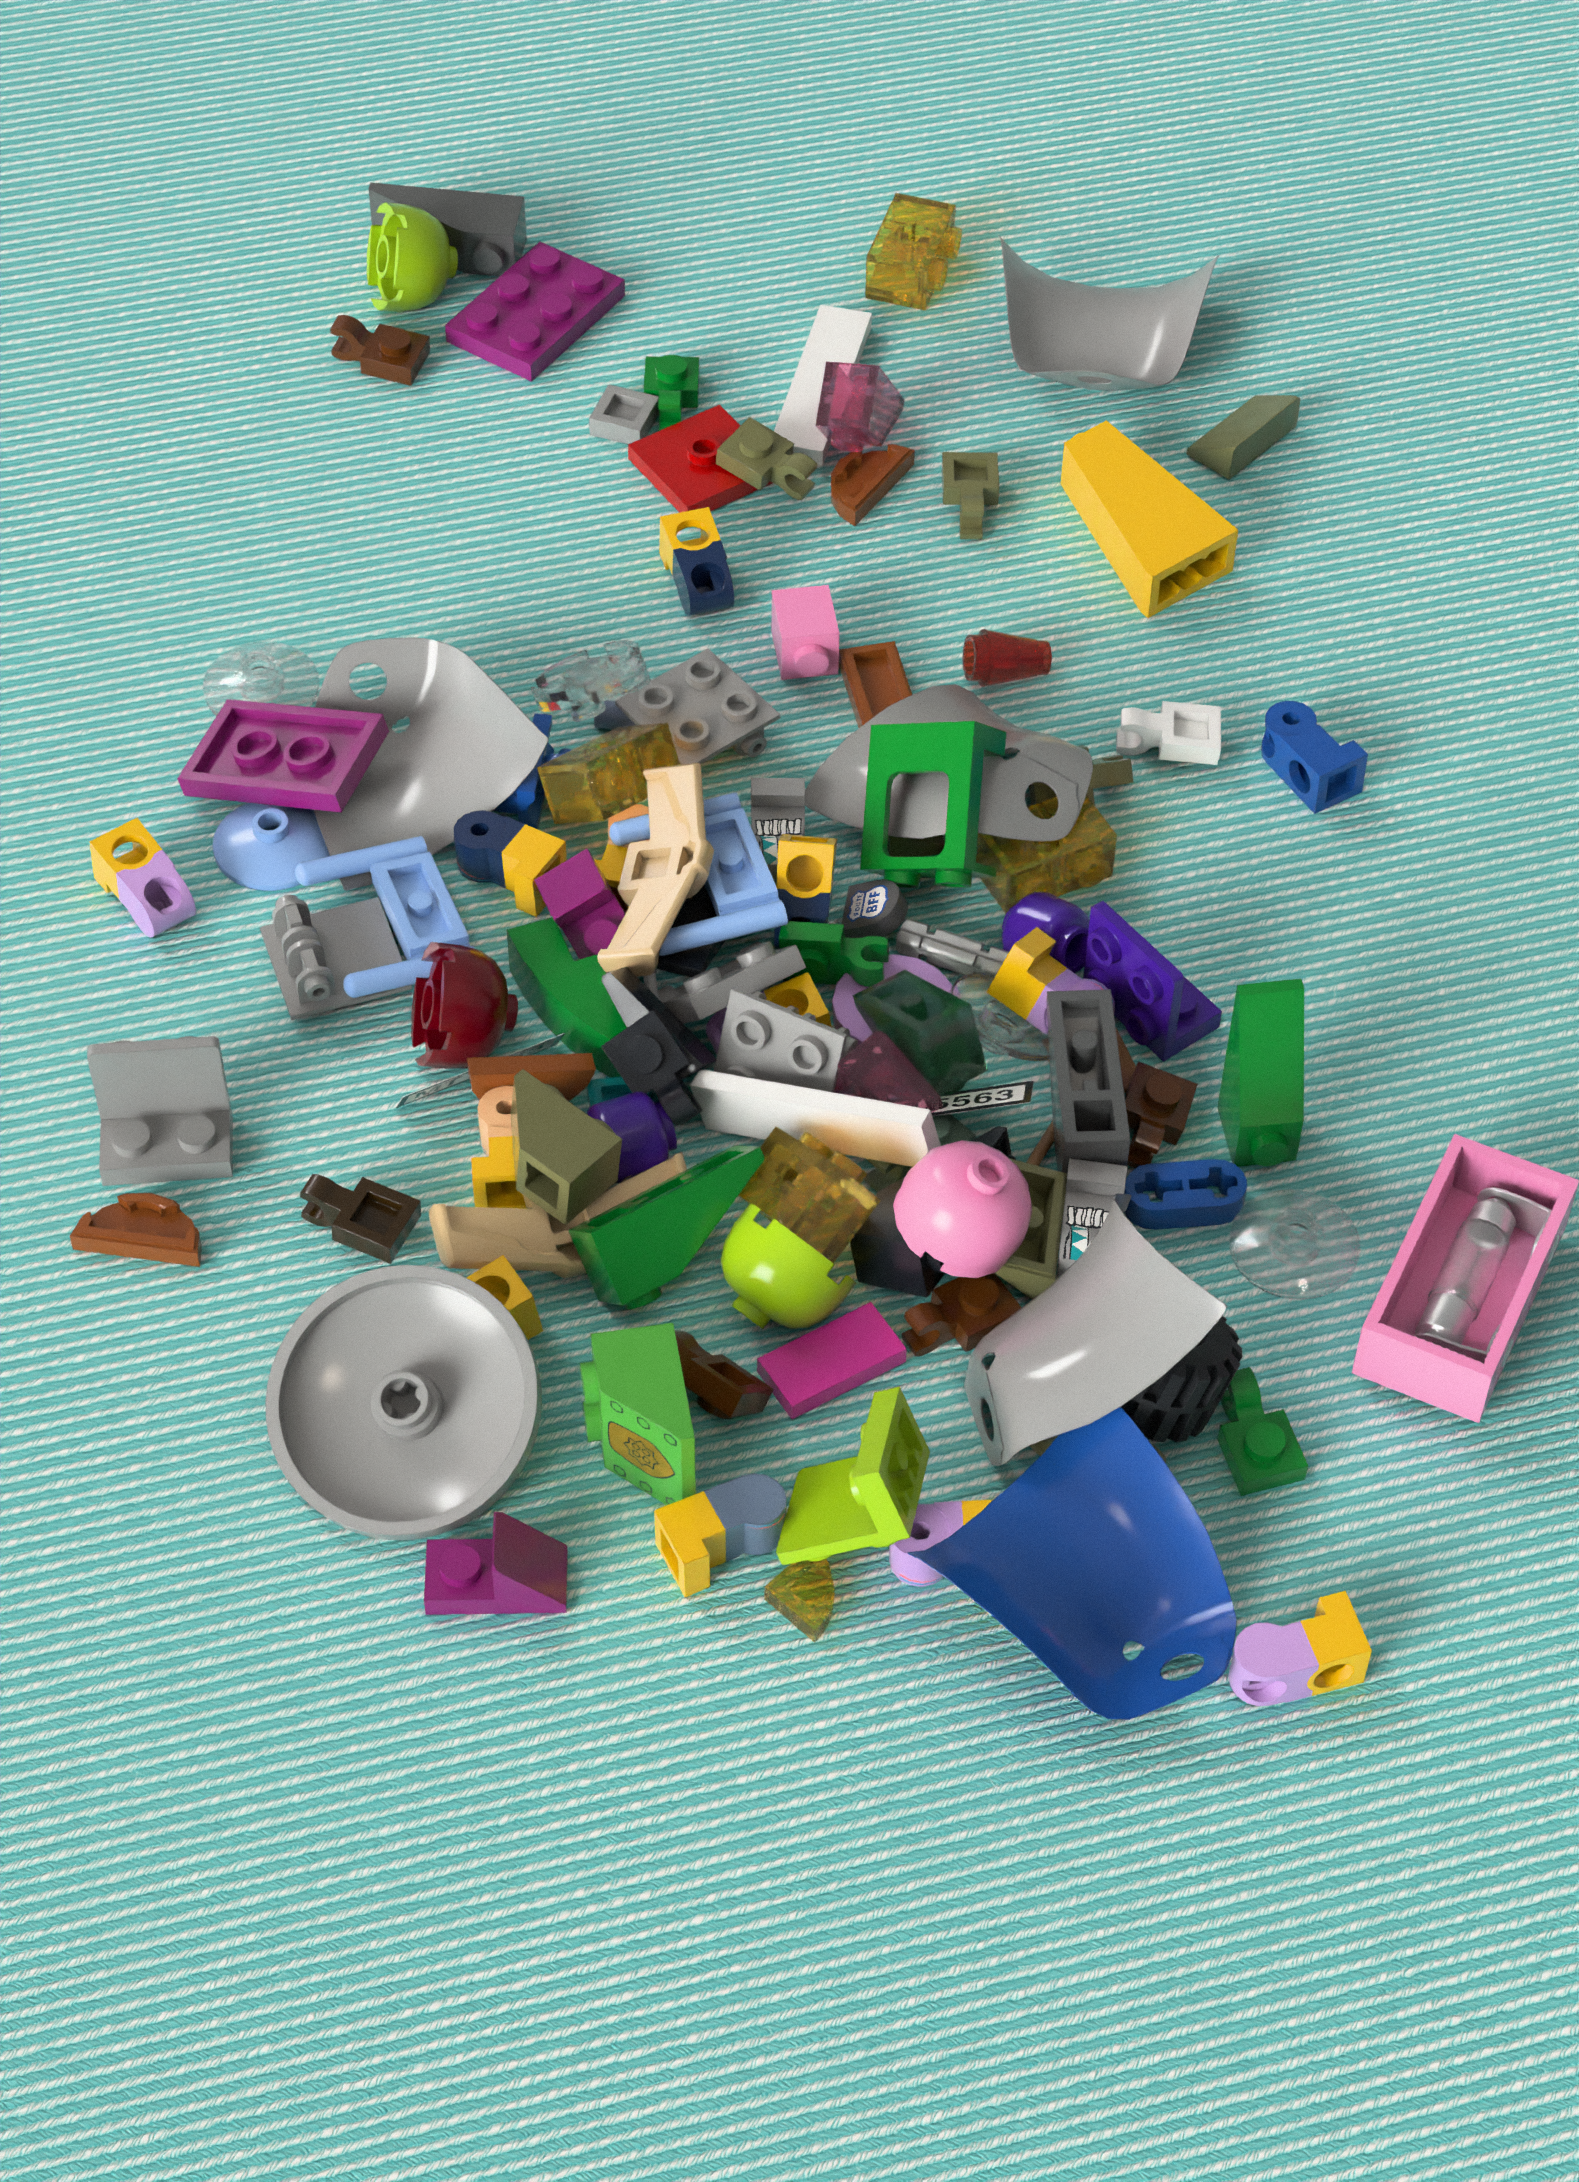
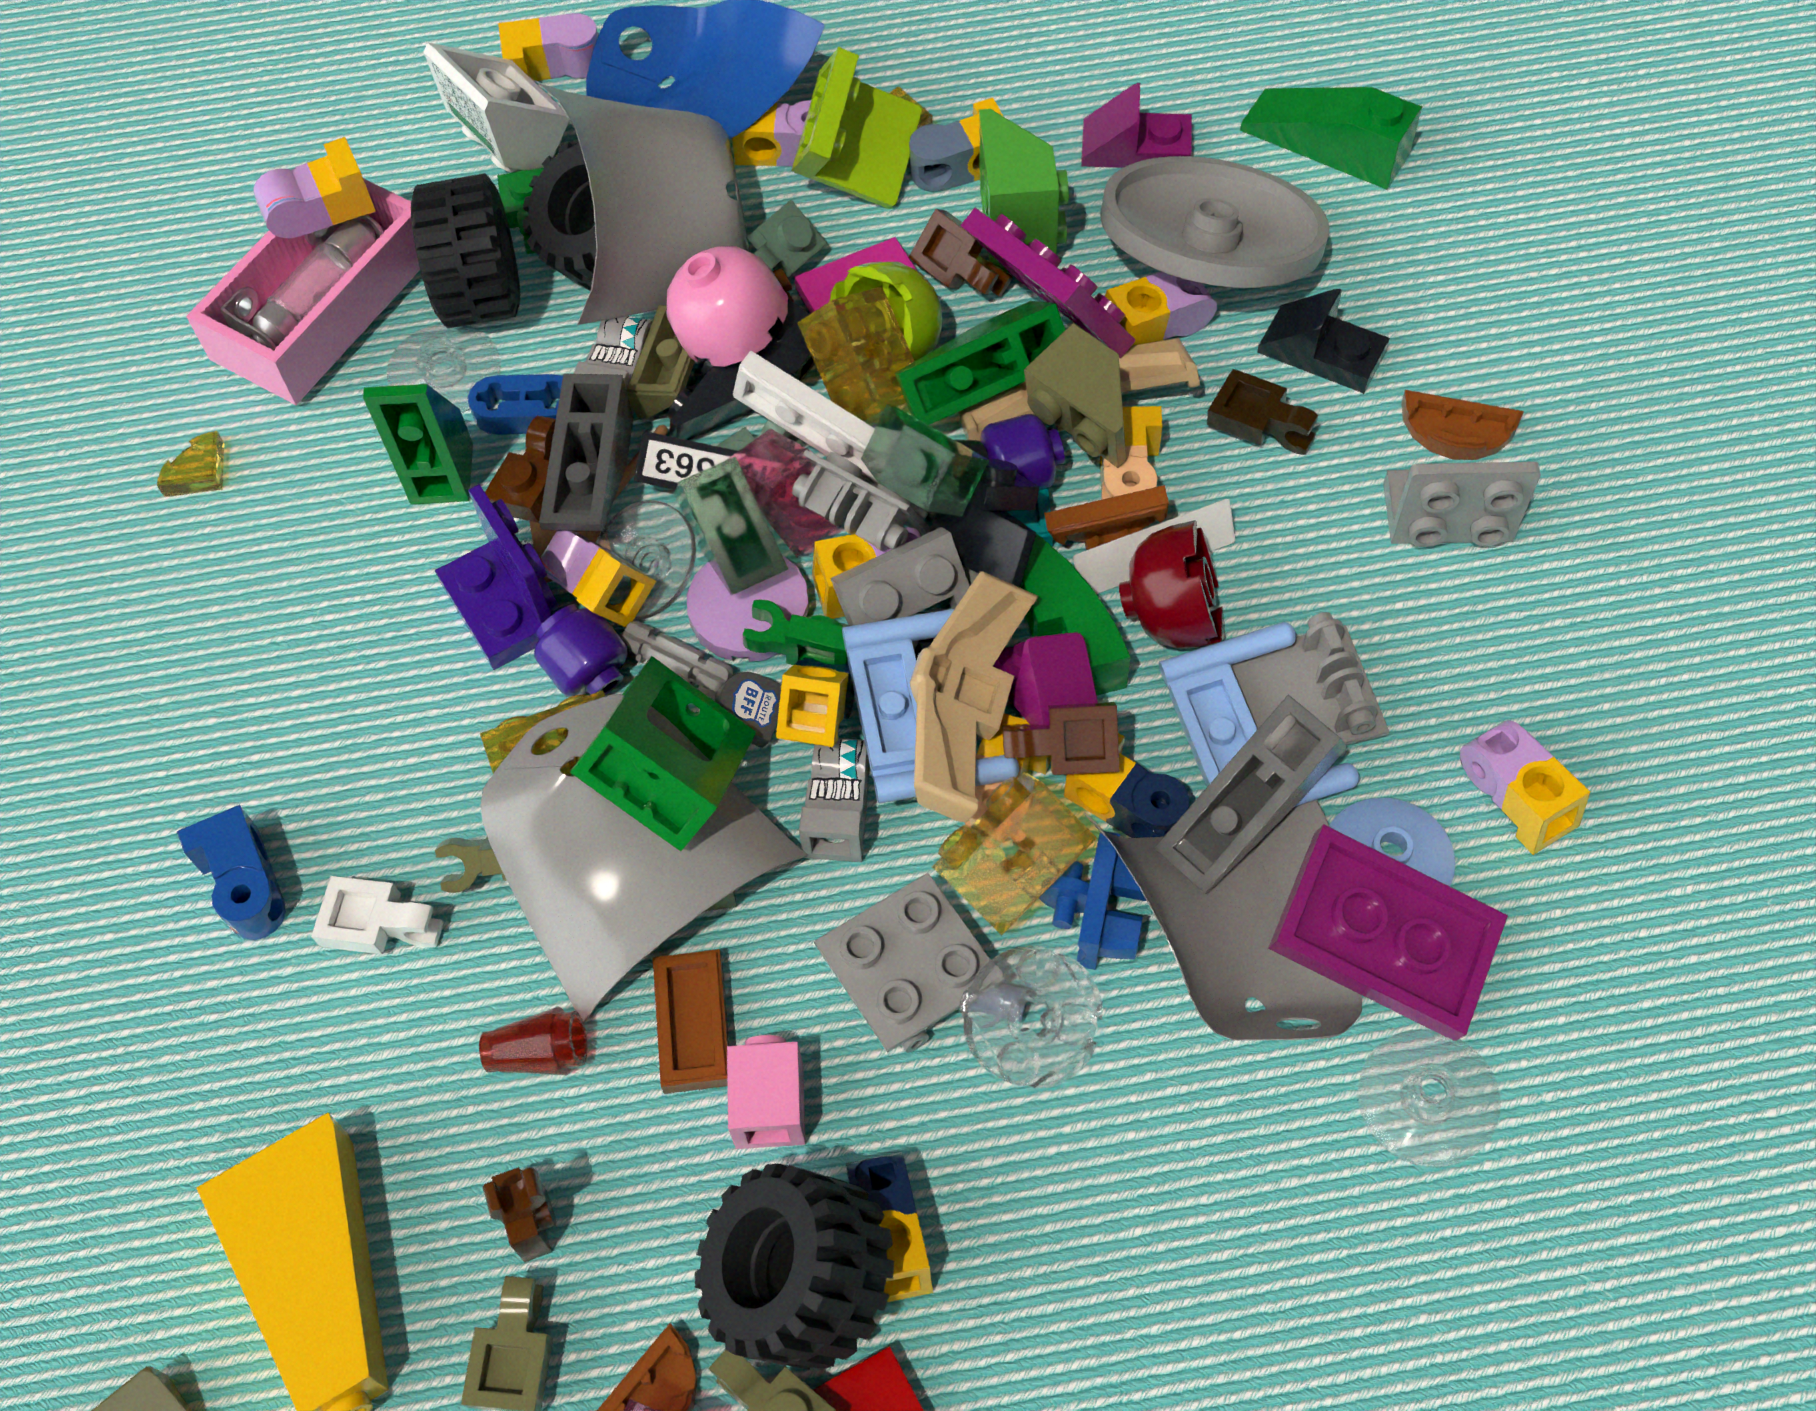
camera: 170 degrees left, 10 degrees up
(240, 1583) = (1340, 127): none -> green slope
(264, 1302) = (1317, 342): none -> black slope
(388, 816) = (1251, 794): none -> dark grey slope
(555, 836) = (1077, 739): none -> reddish brown plate
(596, 1262) = (1037, 270): none -> magenta plate
(725, 1018) = (922, 463): none -> clear green slope
(761, 502) = (793, 1267): none -> black tyre
(935, 1372) = (786, 239): none -> sand green plate
(982, 549) = (524, 1209): none -> reddish brown plate
(1291, 1290) = (465, 250): none -> black tyre
(1327, 1497) = (498, 106): none -> white slope
(1482, 1299) = (313, 193): none -> leg
(1524, 1114) = (195, 468): none -> clear yellow tile

